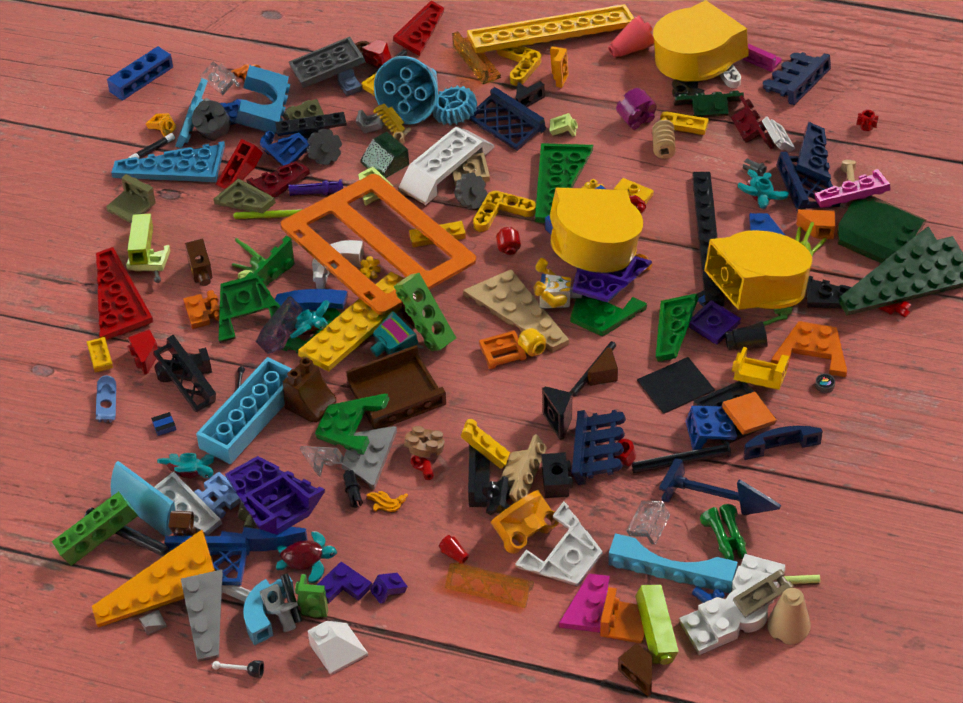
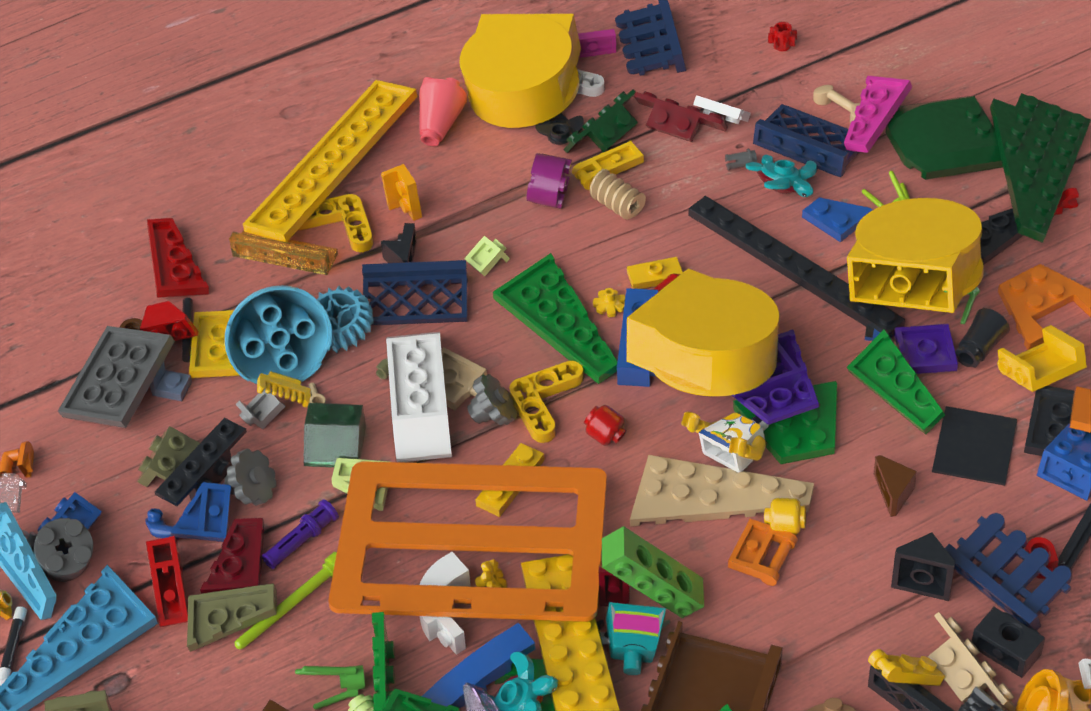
camera: 45 degrees left, 0 degrees up
(271, 85) = (90, 452): dark azure arch -> none
(584, 379) = (877, 495): black bar -> none
(813, 155) = (782, 103): dark blue wing -> none
(823, 222) = (874, 172): orange slope -> none

